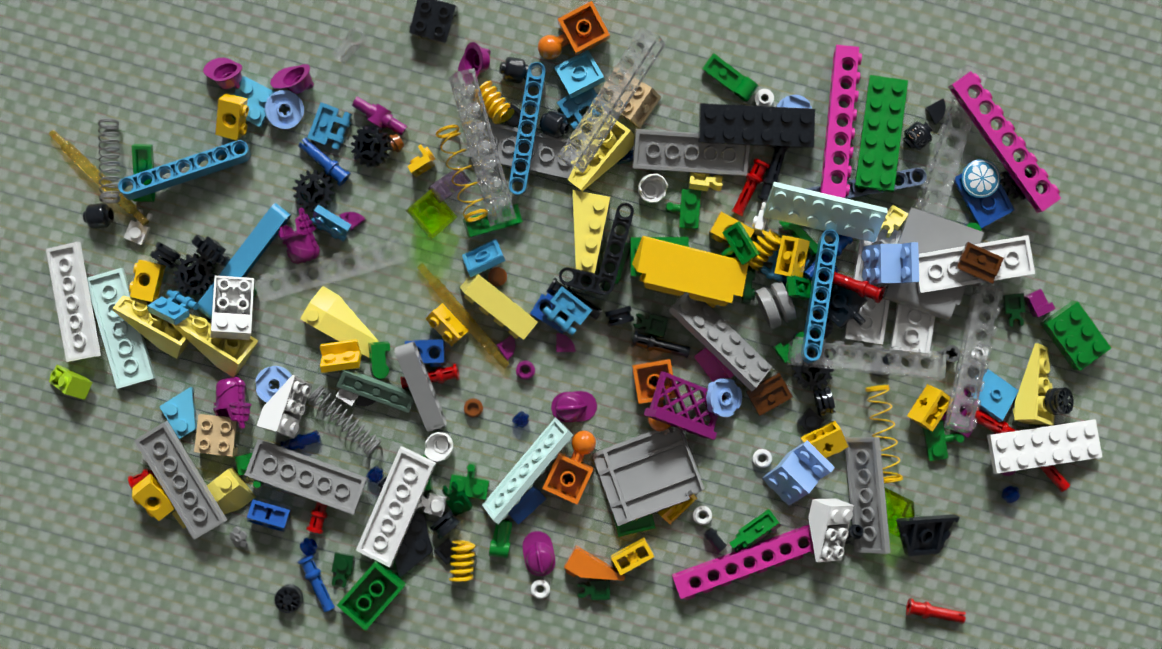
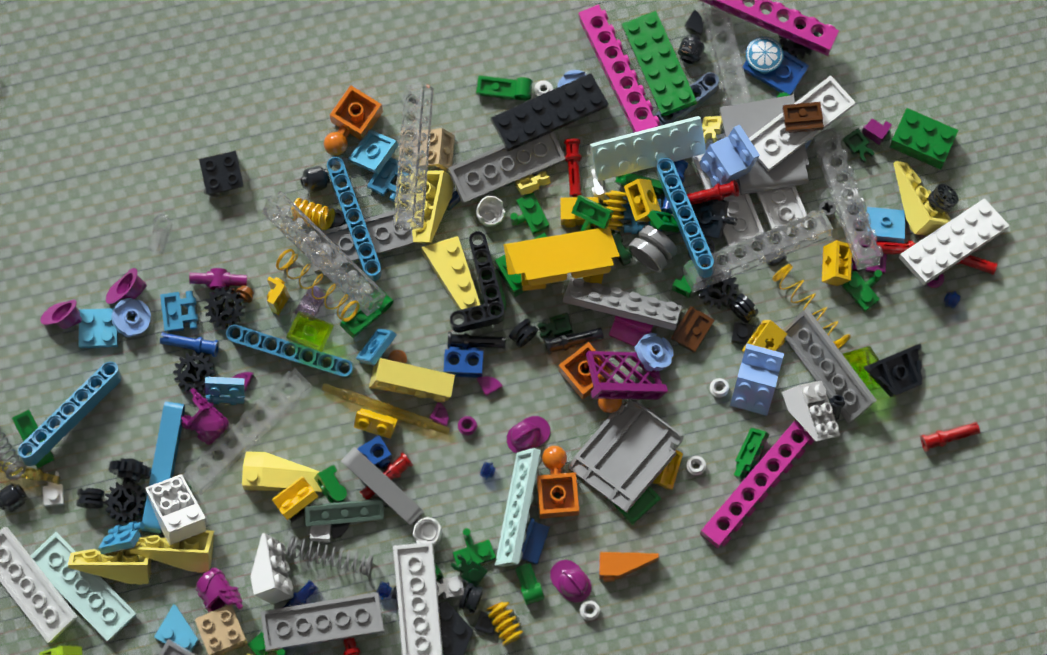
camera: 25 degrees left, 15 degrees down
(155, 273) = (81, 519): yellow brick -> none
(225, 124) = (86, 357): yellow brick -> none
(263, 380) = (238, 555): light blue plate -> none
(399, 214) = (282, 345): none -> dark azure beam
(473, 407) = (439, 483): dark orange plate -> none
(476, 58) = (274, 183): magenta piece -> none
(554, 124) = (375, 204): black head -> none
(569, 305) = (477, 344): dark azure plate -> none
(598, 589) = (641, 581): dark green plate -> none
(632, 556) = (654, 532): yellow brick -> none
(715, 540) = (719, 480): black pin -> none
(773, 172) = (585, 137): black pin -> none

